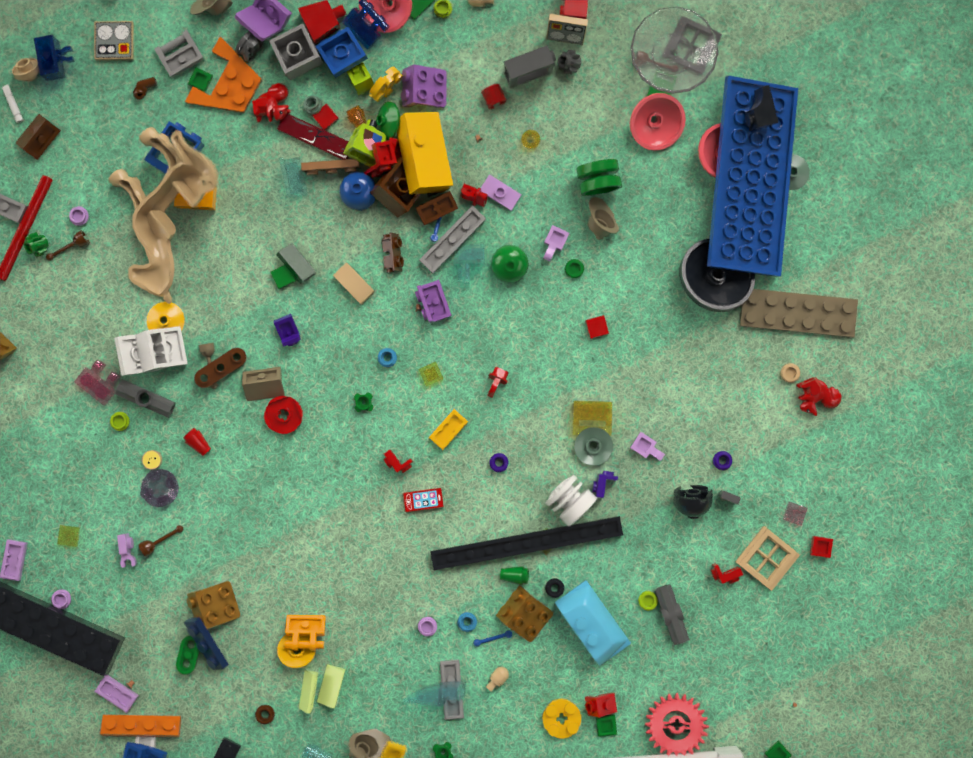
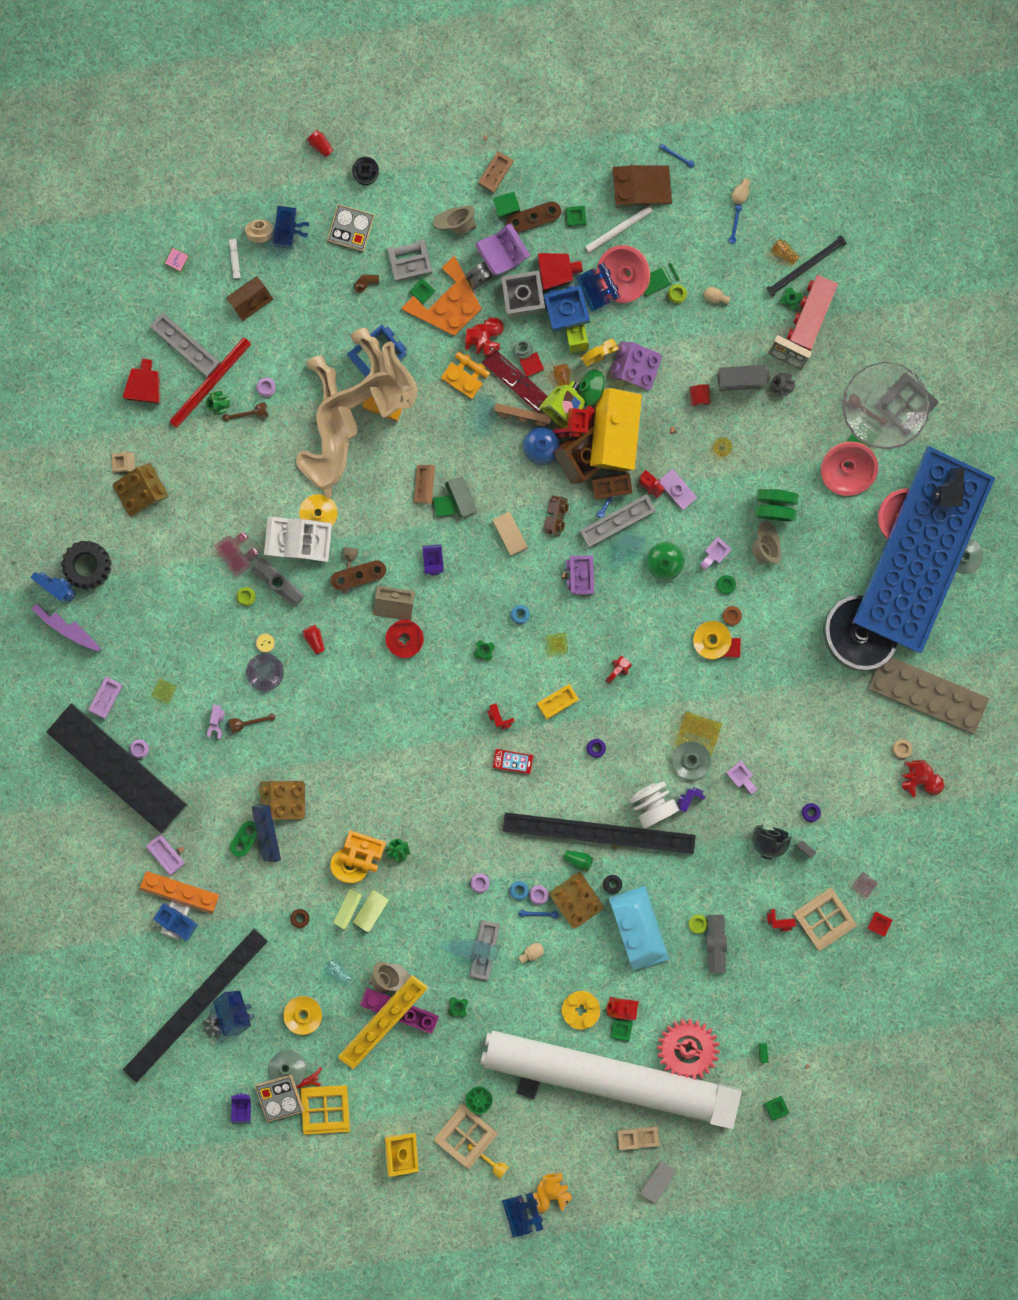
camera: 20 degrees right, 0 degrees up
(257, 261) = (424, 484): none -> medium nougat plate
(262, 151) = (461, 379): none -> light orange plate
(338, 620) = (398, 850): none -> green gear
(487, 620) = (538, 894): none -> lavender plate
(570, 318) = (705, 633): none -> yellow dish
(589, 296) = (732, 615): none -> dark orange tile
(749, 705) = (763, 1052): none -> green tile

